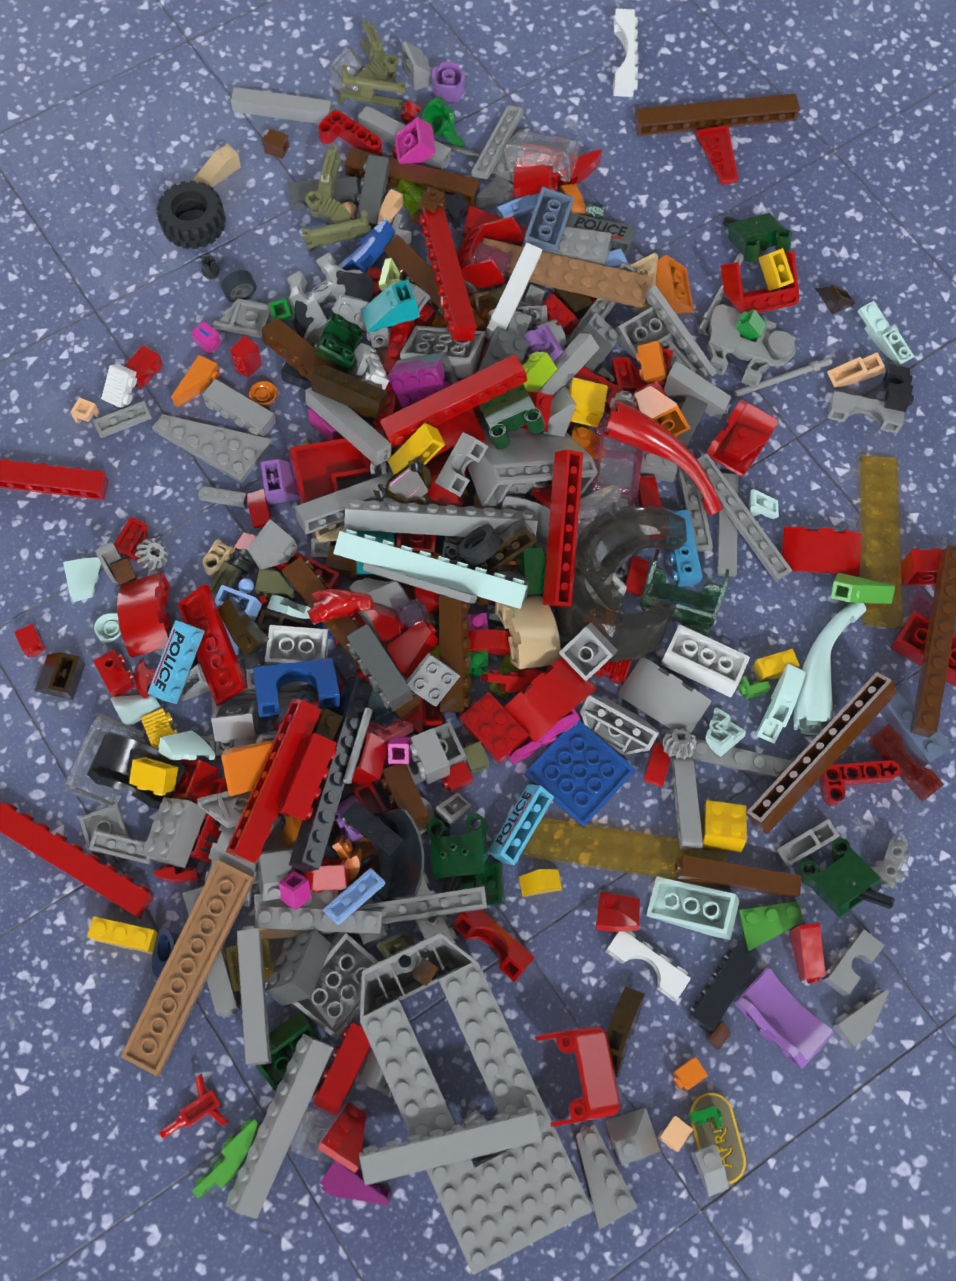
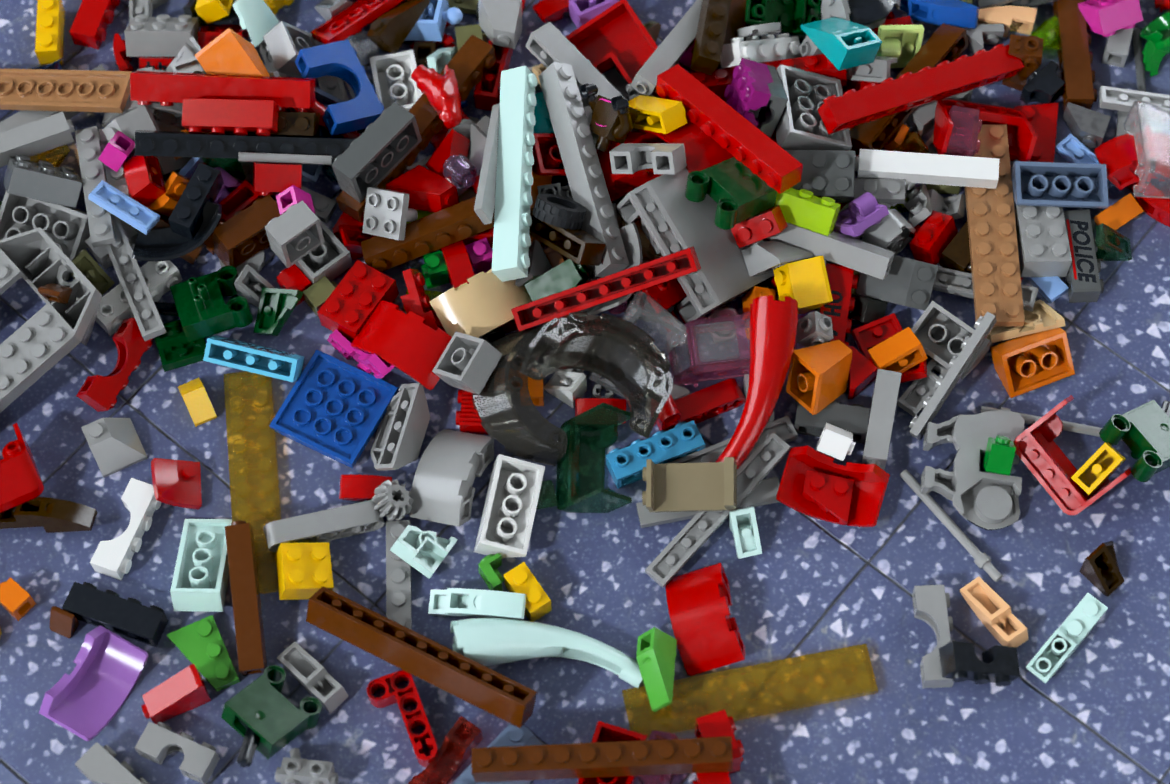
camera: 80 degrees right, 5 degrees down
(394, 729) = (319, 188): coral plate -> none
(479, 796) = (275, 309): none -> dark green wing
(565, 960) = (114, 444): none -> light grey slope
(710, 424) = (835, 442): none -> white brick
(725, 524) = (690, 486): none -> dark tan panel

